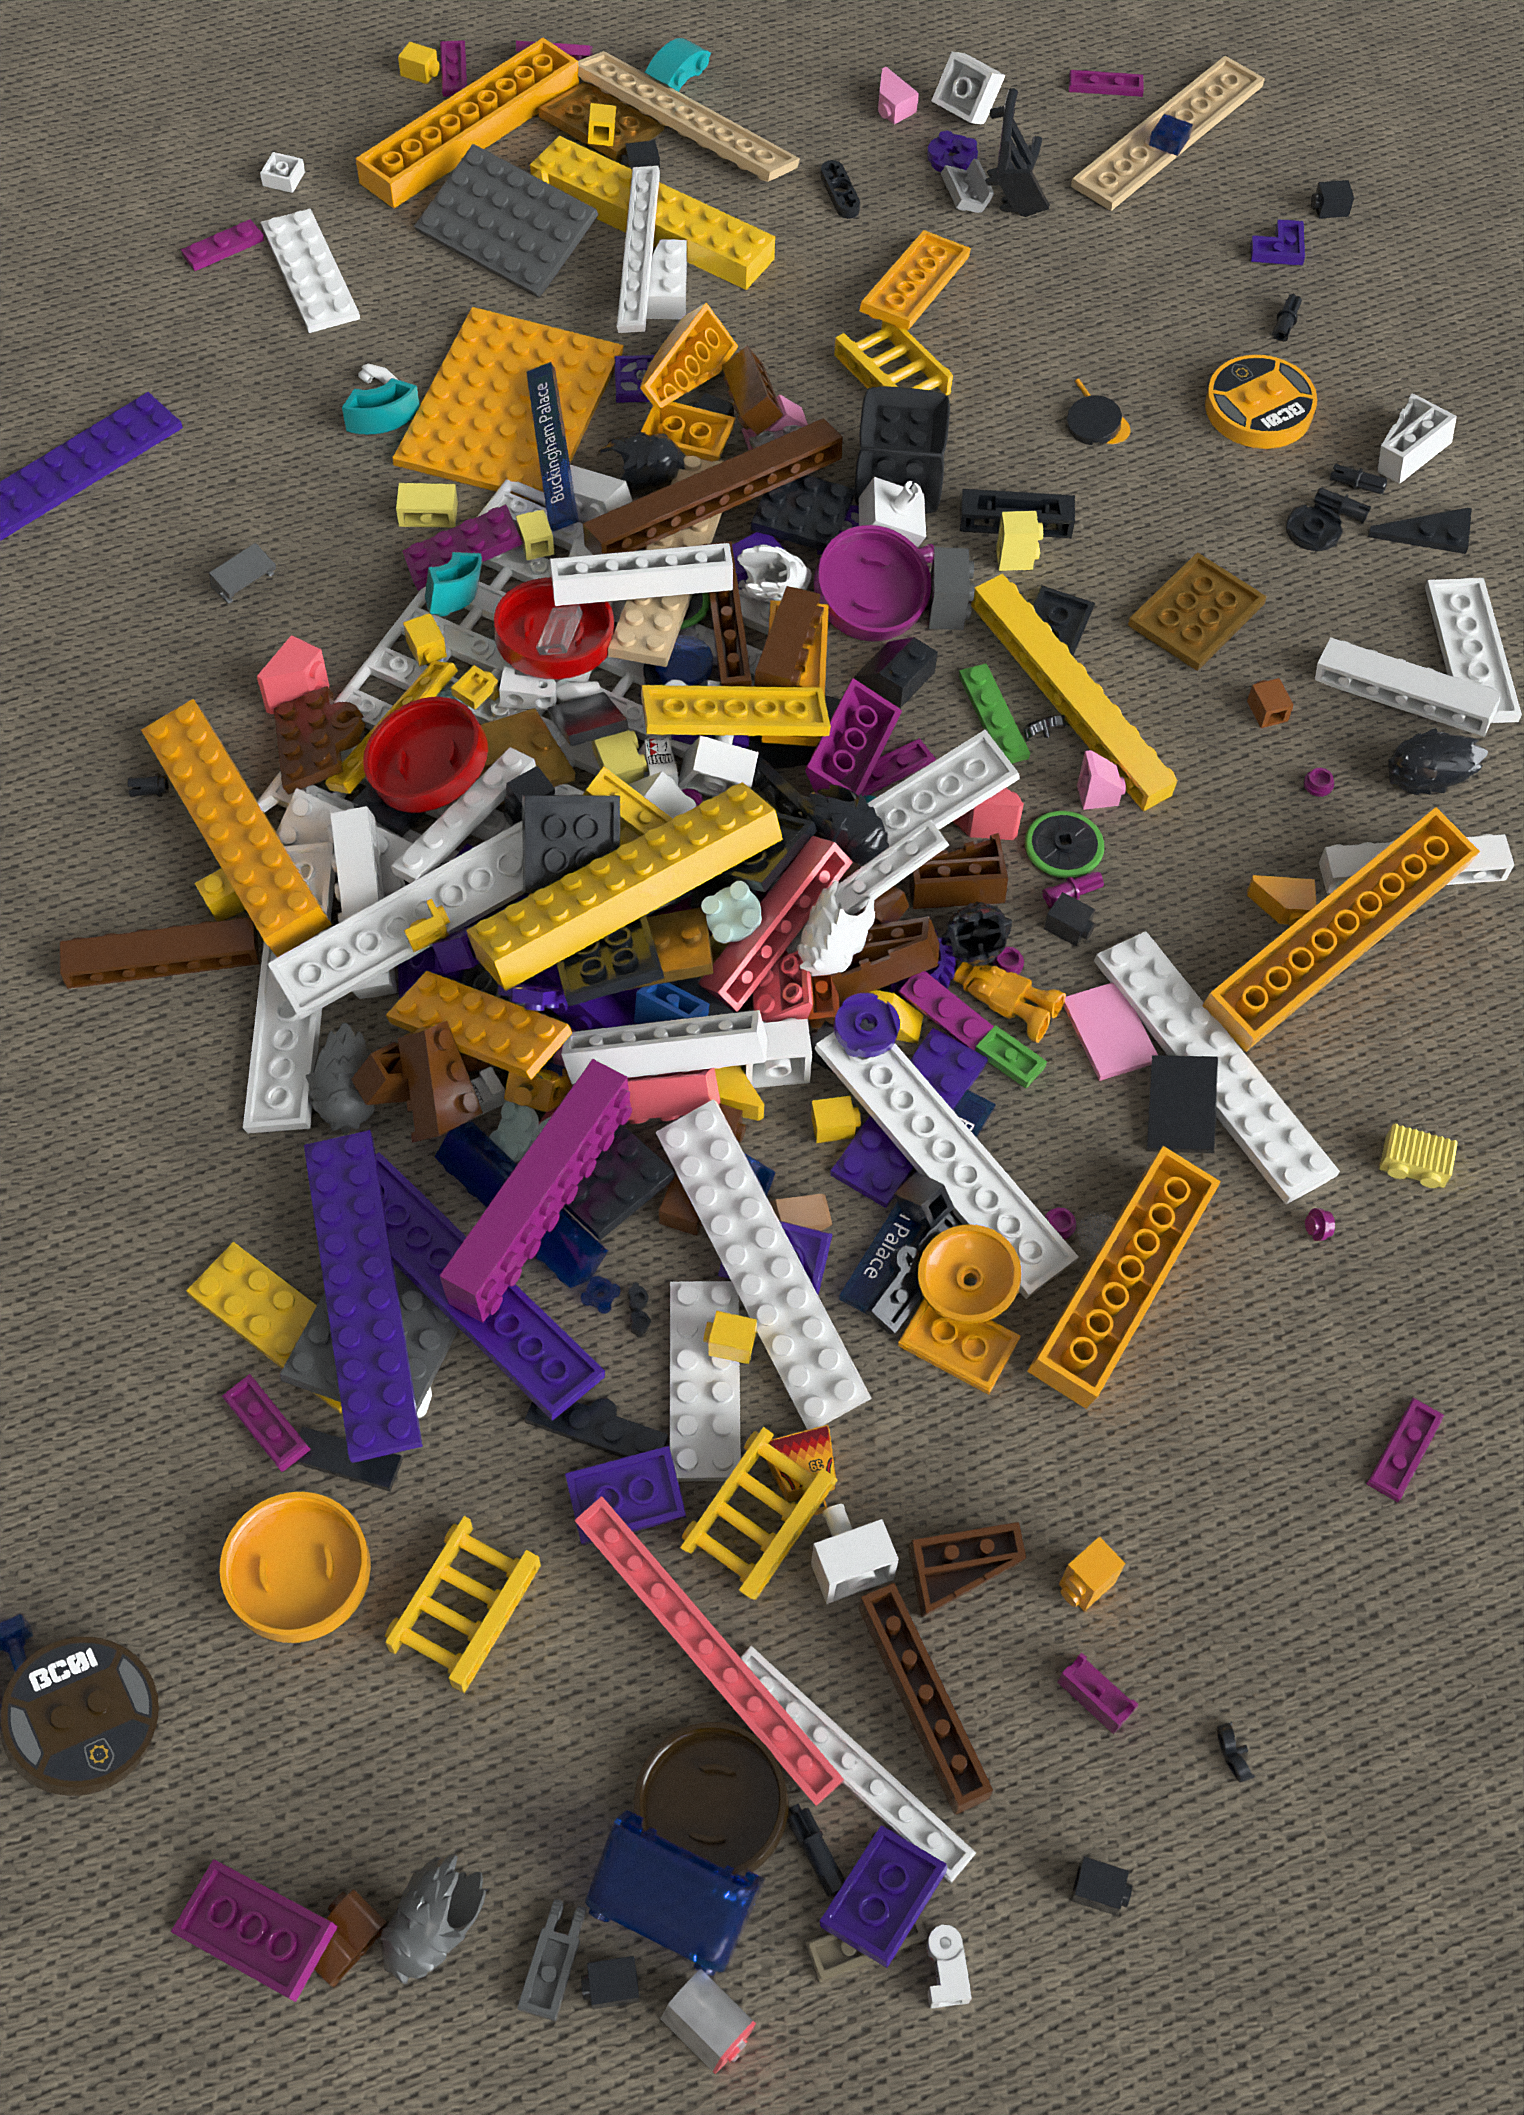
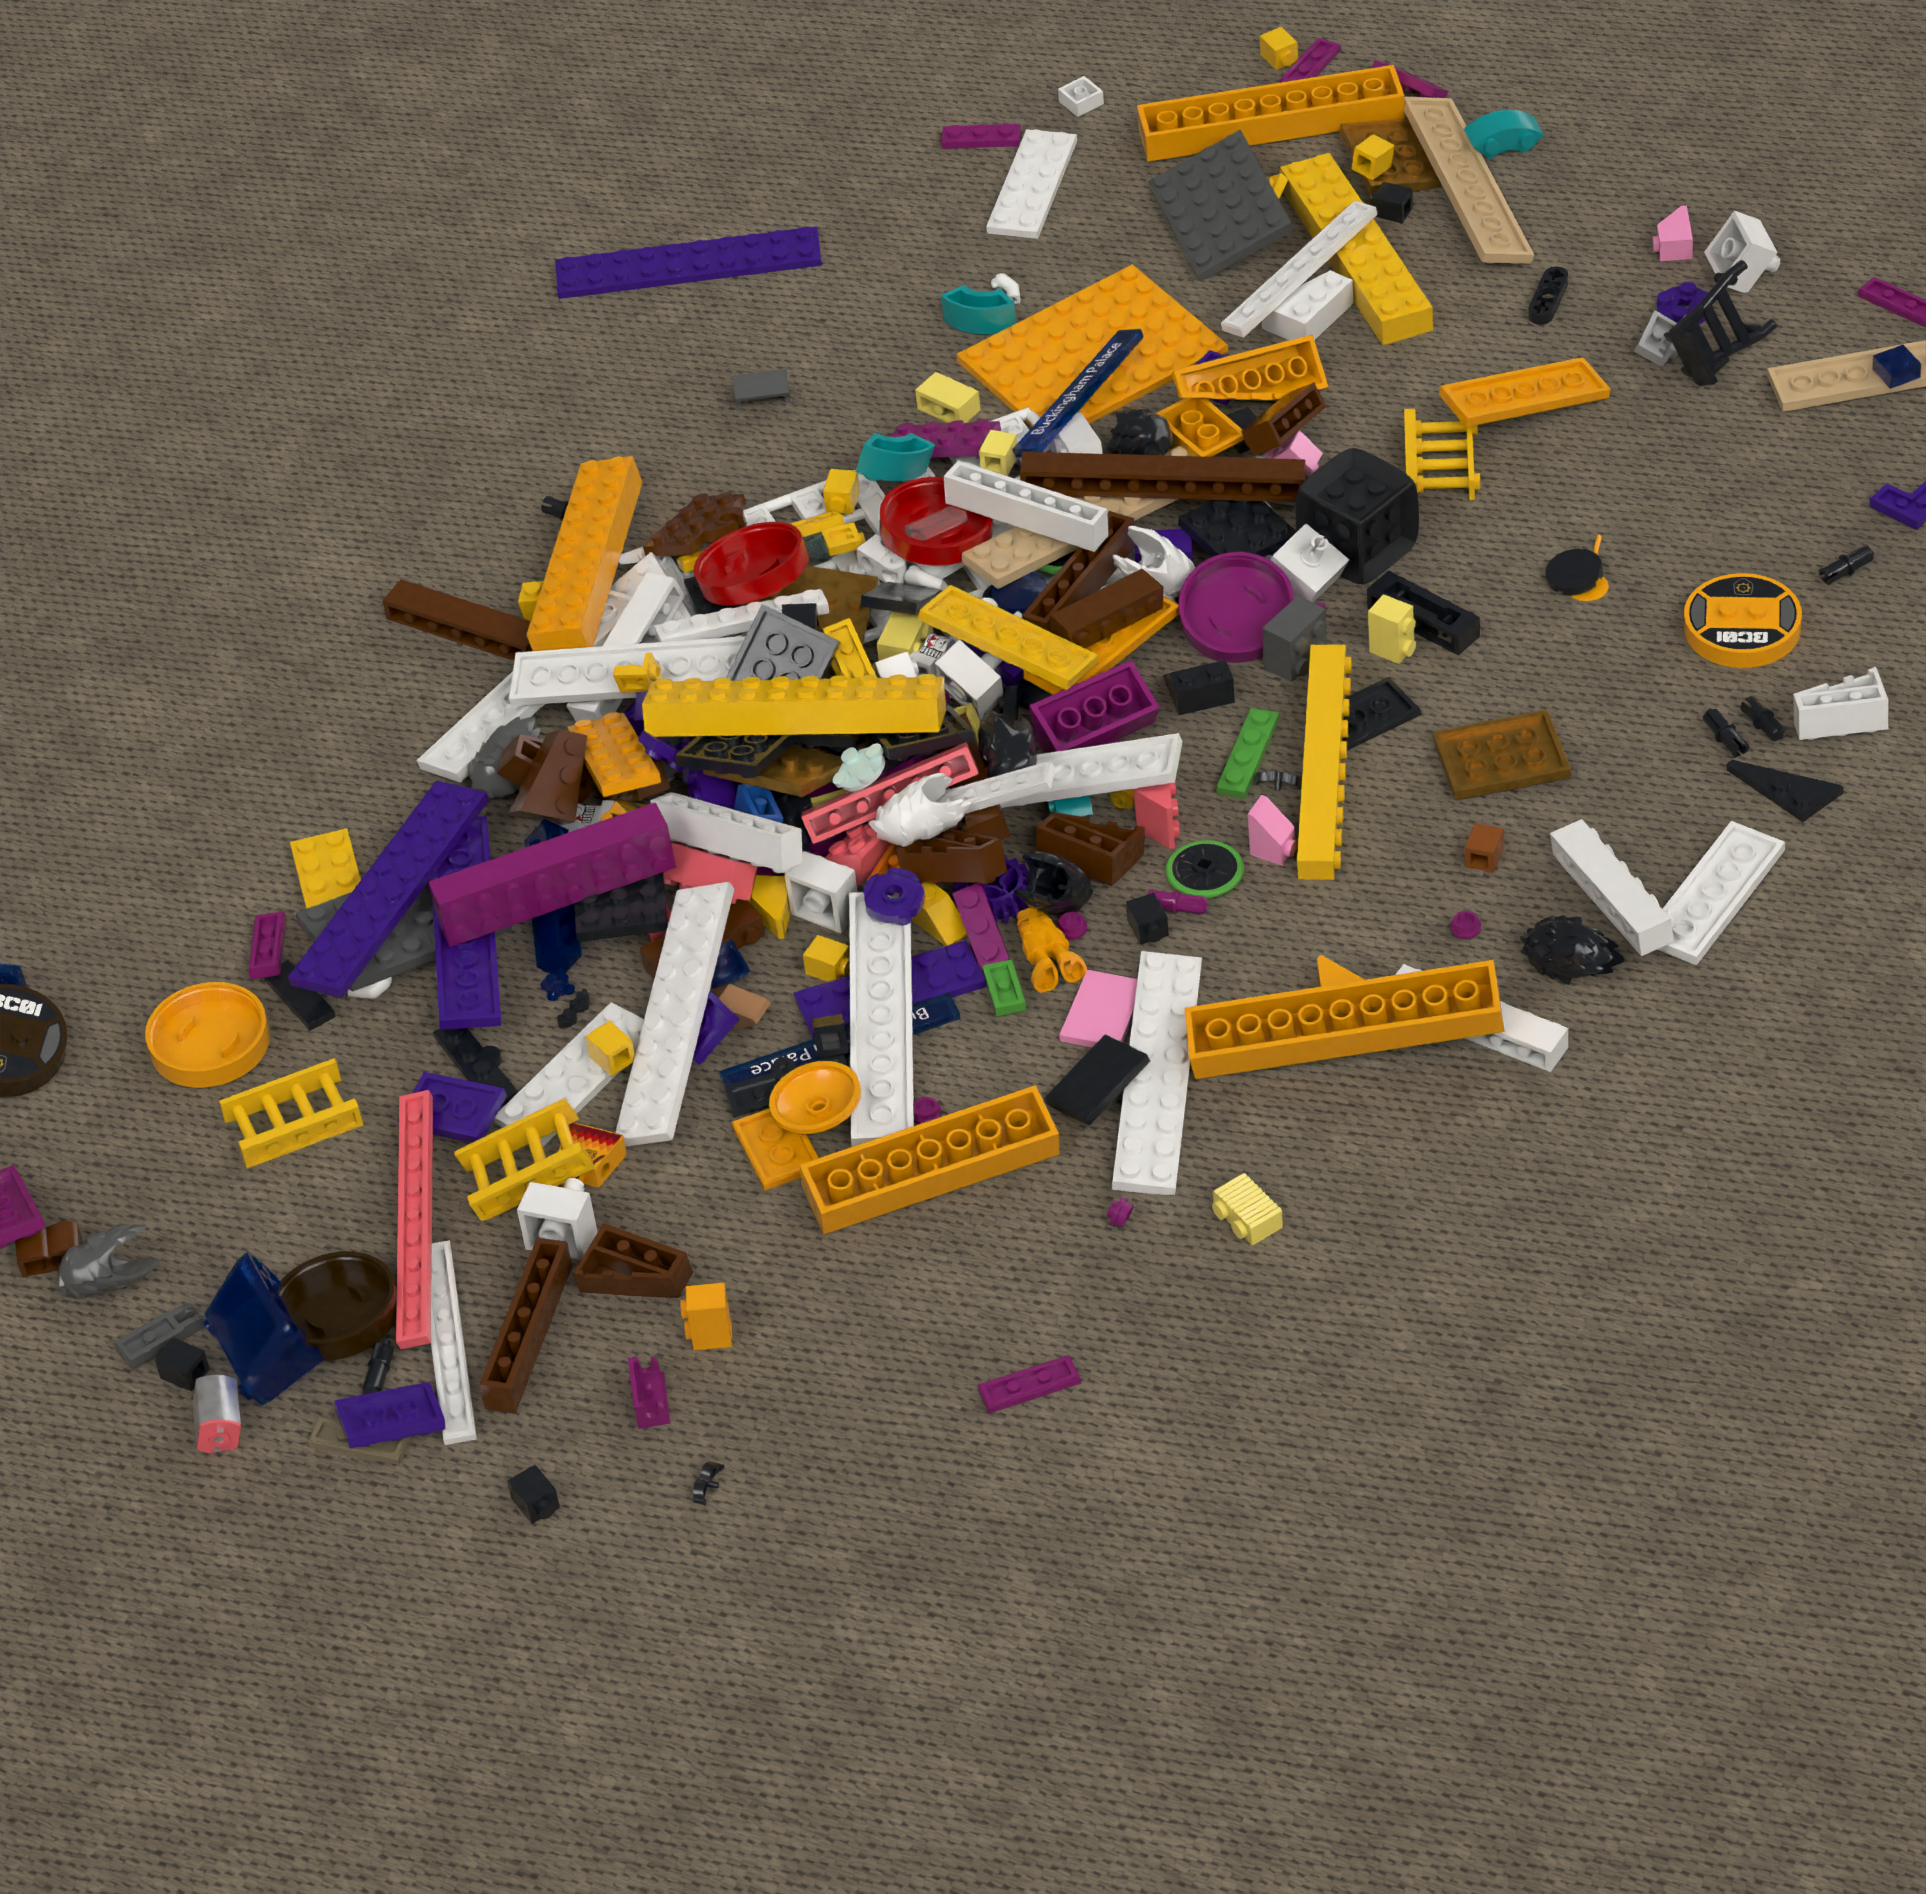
camera: 45 degrees right, 15 degrees down
(292, 673) = (722, 471): coral slope -> none
(948, 1954) = (392, 1480): white leg -> none
(1311, 534) = (1677, 747): black tile -> none

